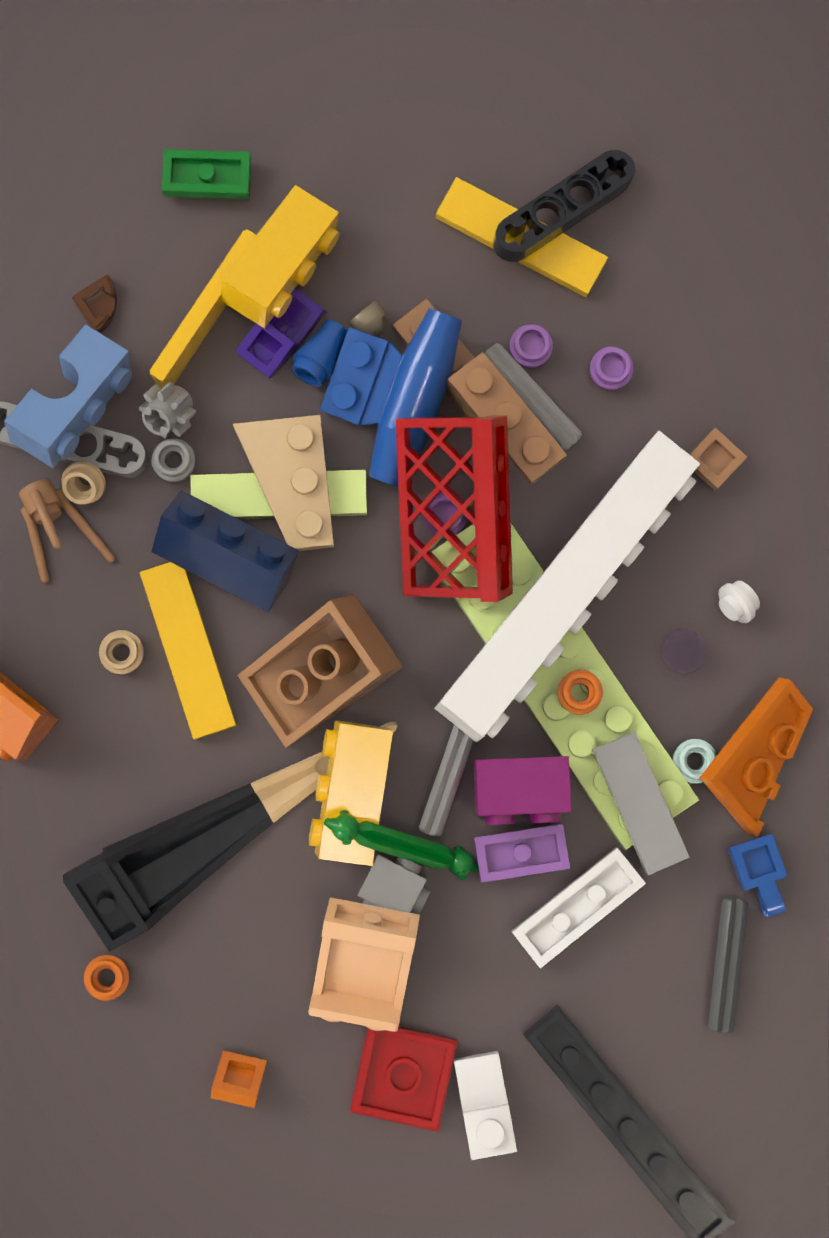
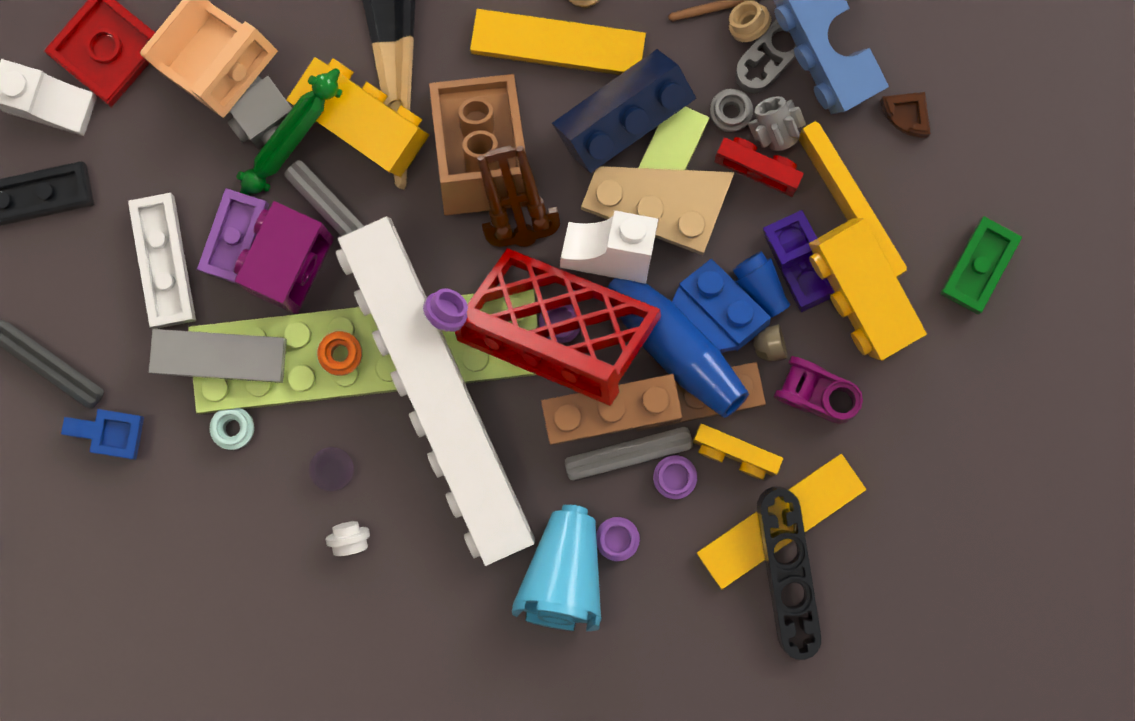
camera: 125 degrees right, 0 degrees up
(212, 389) = (773, 172): none -> red plate
(358, 496) = (611, 248): none -> white arch
(381, 587) = (524, 234): none -> reddish brown piece
(392, 262) = (816, 391): none -> magenta piece
(481, 284) = (753, 459): none -> yellow plate
(497, 603) = (446, 310): none -> medium lavender plate
(668, 394) = (563, 574): none -> medium azure cone
(717, 459) = (485, 587): medium nougat plate -> none
(751, 760) = (204, 476): orange wing -> none

